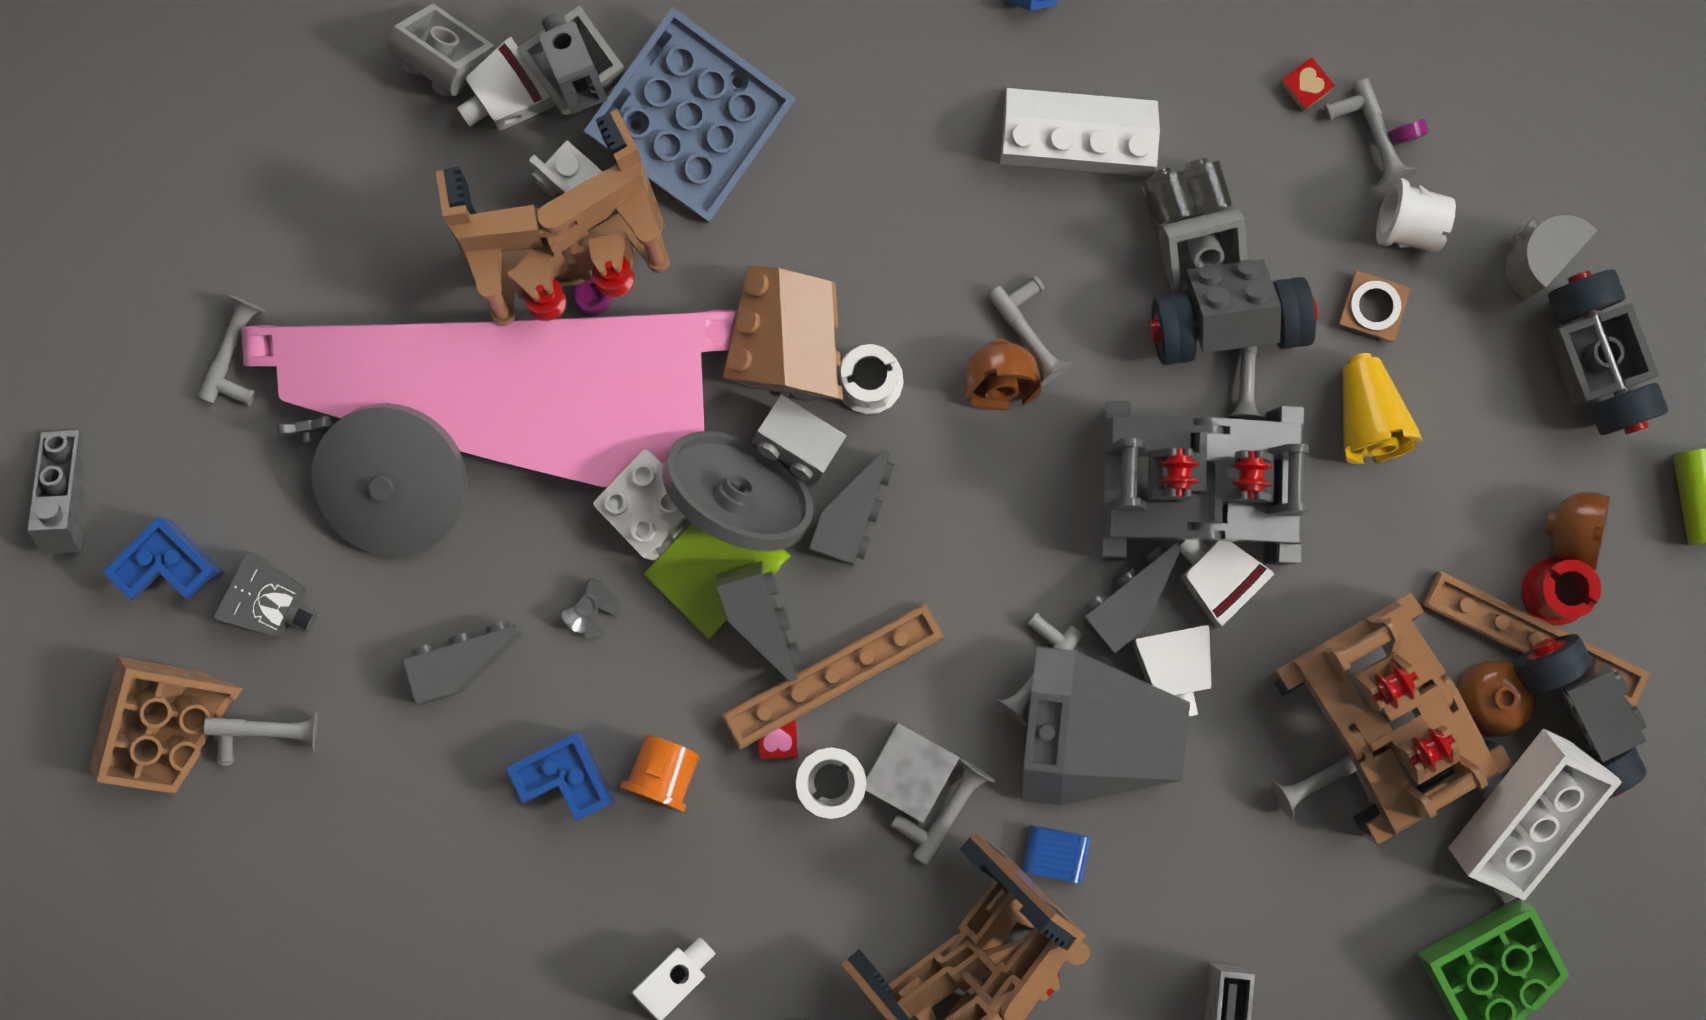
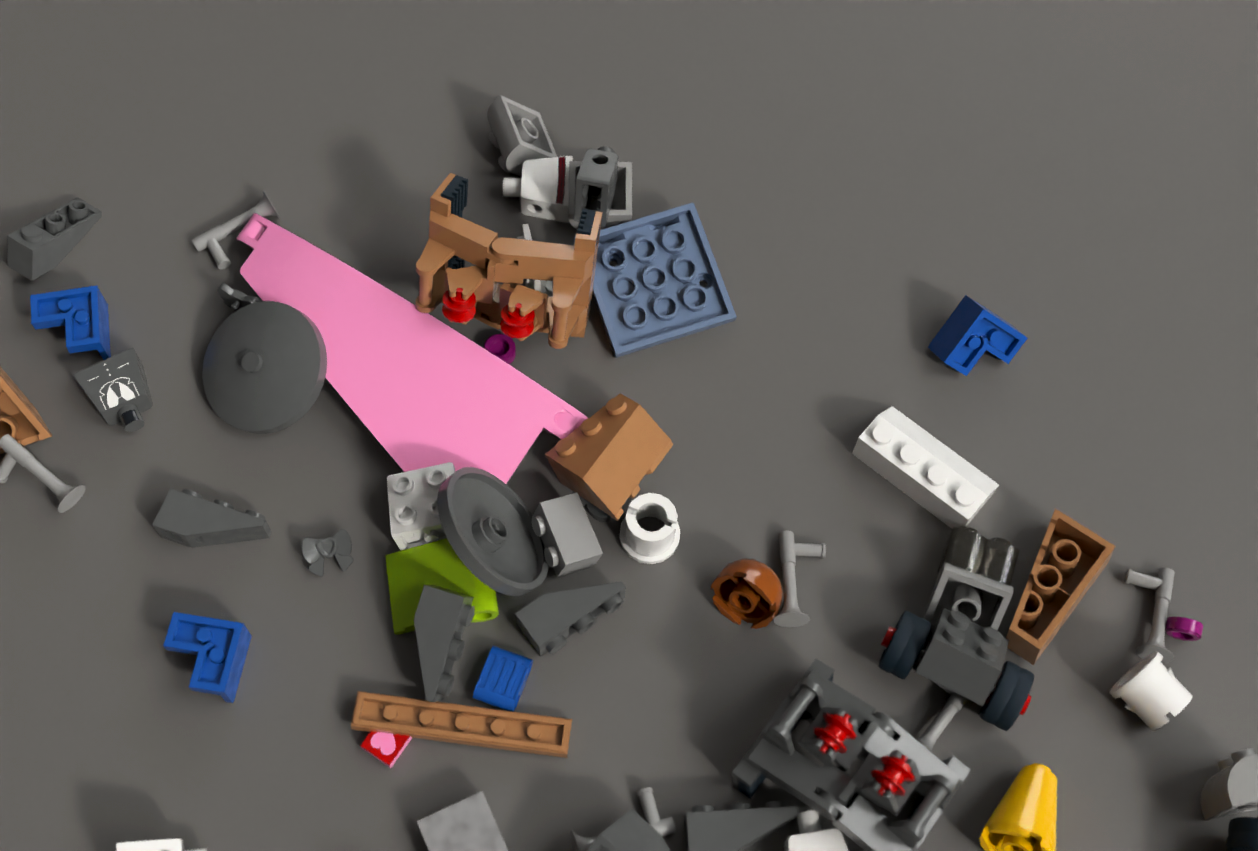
camera: 35 degrees right, 20 degrees down
(662, 773) = (279, 701): orange piece -> none
(824, 806) = (382, 783): white piece -> none
(838, 610) = (503, 678): none -> blue piece
(1270, 165) = (1060, 577): none -> medium nougat wedge
(1307, 84) = (1128, 546): tile -> none
(1354, 320) = (1076, 763): piece -> none

